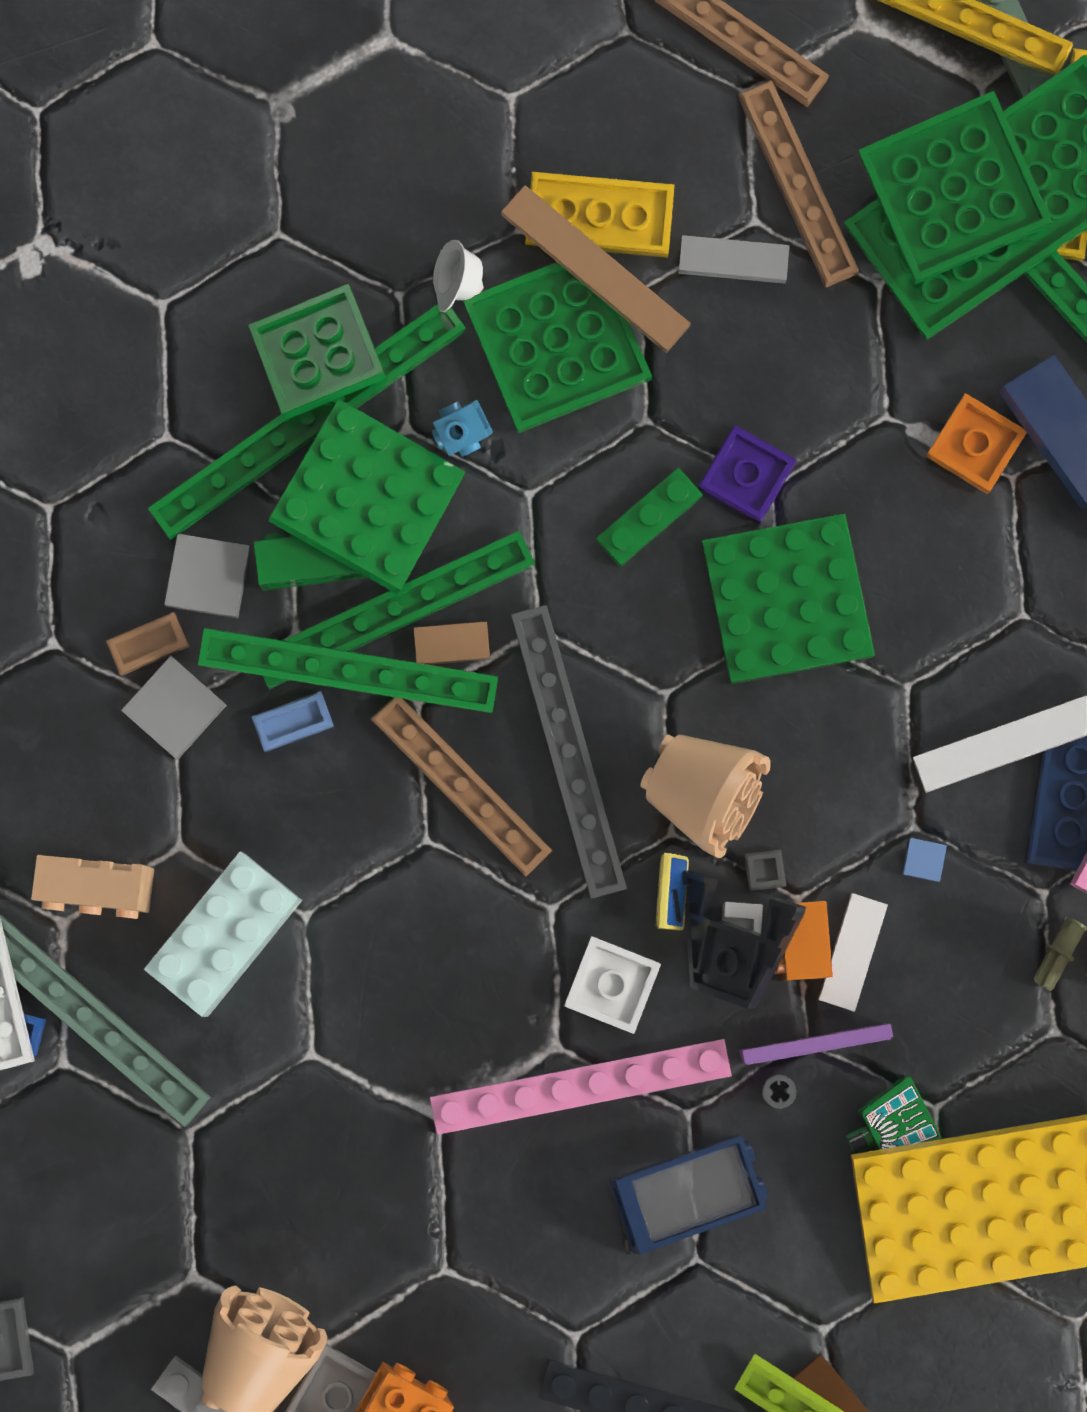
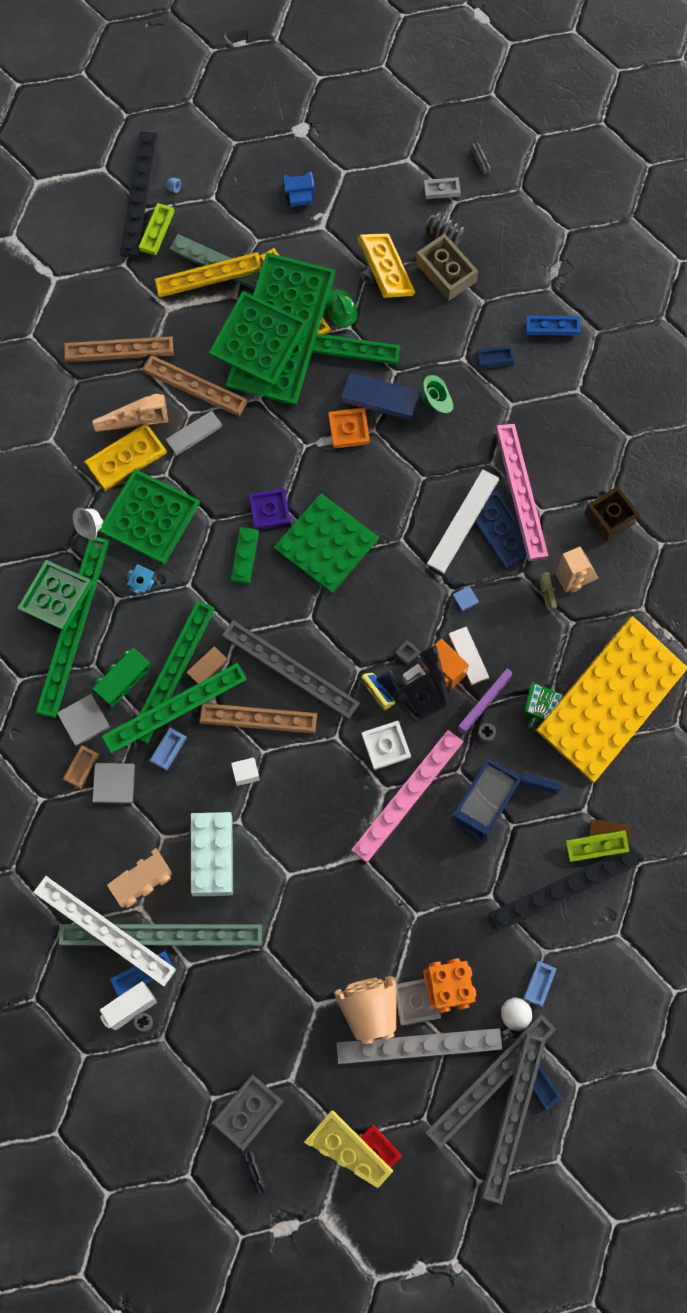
camera: 40 degrees left, 10 degrees down
(367, 496) = (124, 634): green plate -> none
(373, 851) = (245, 771): none -> white panel
(595, 269) = (142, 476): medium nougat tile -> none
(687, 164) = (146, 410): none -> light nougat wedge
(706, 789) = (357, 637): light nougat cone -> none
(790, 1238) = (540, 784): none -> dark blue tile

